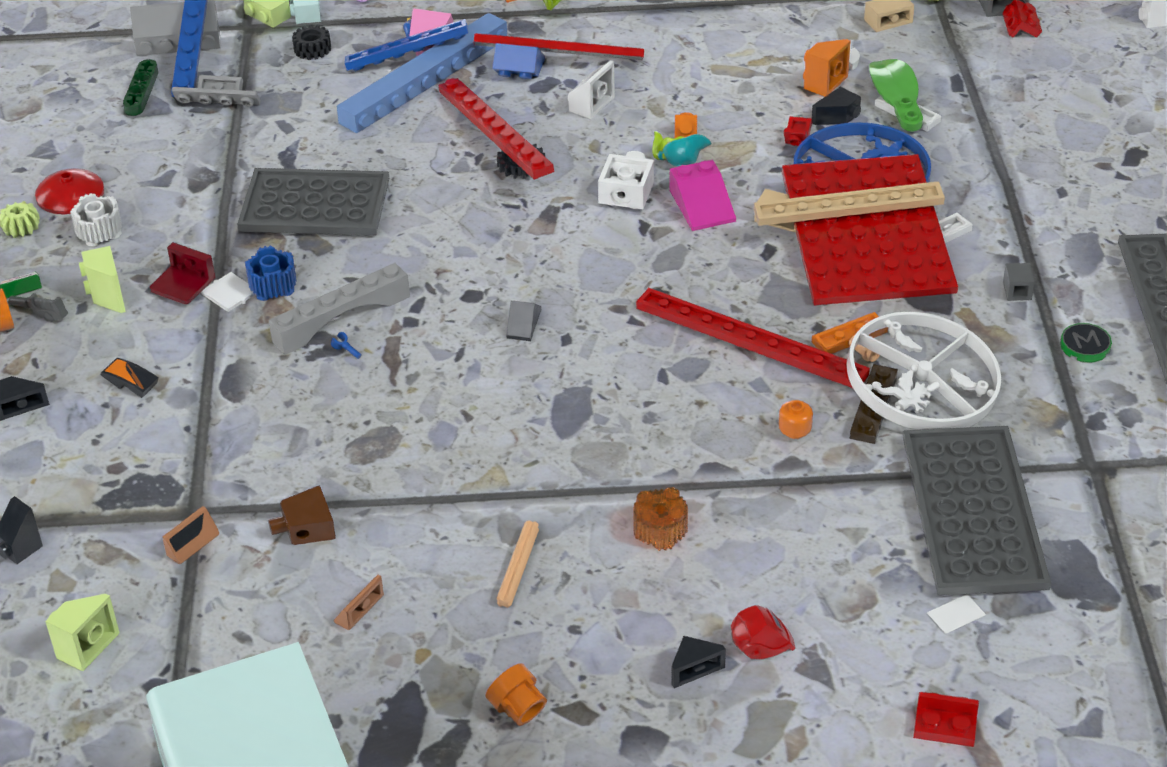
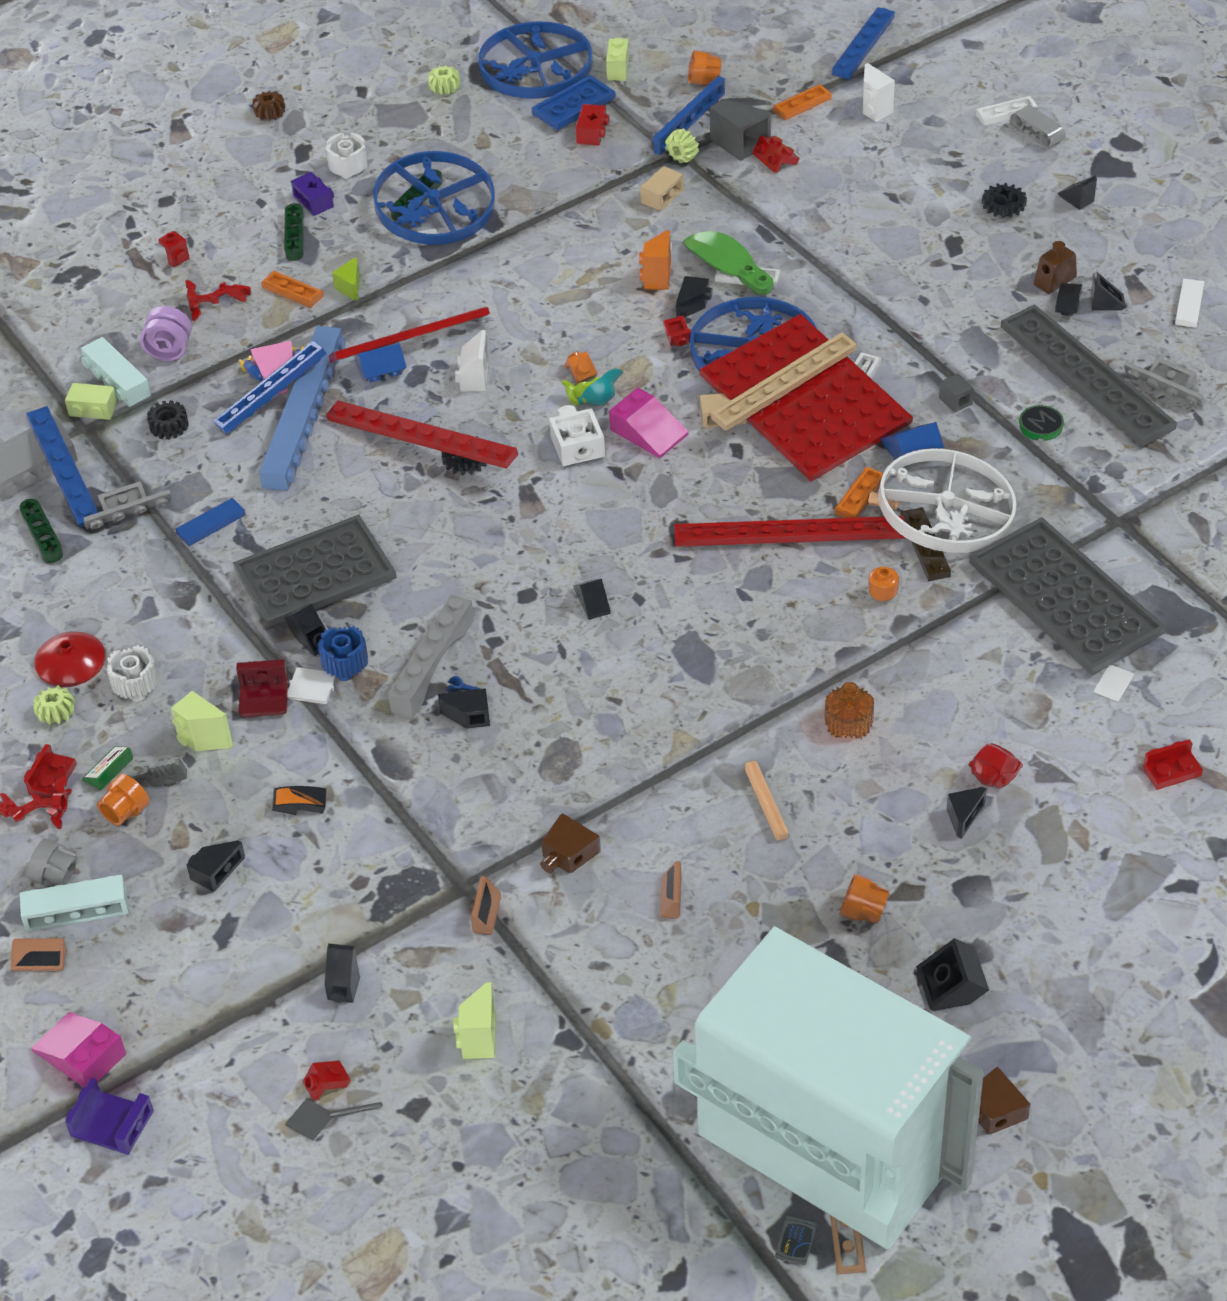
camera: 30 degrees left, 5 degrees up
(262, 235) = (306, 627): none -> black slope
(272, 132) = (210, 521): none -> blue tile
(332, 363) = (466, 707): none -> black slope
(939, 304) = (913, 439): none -> blue slope

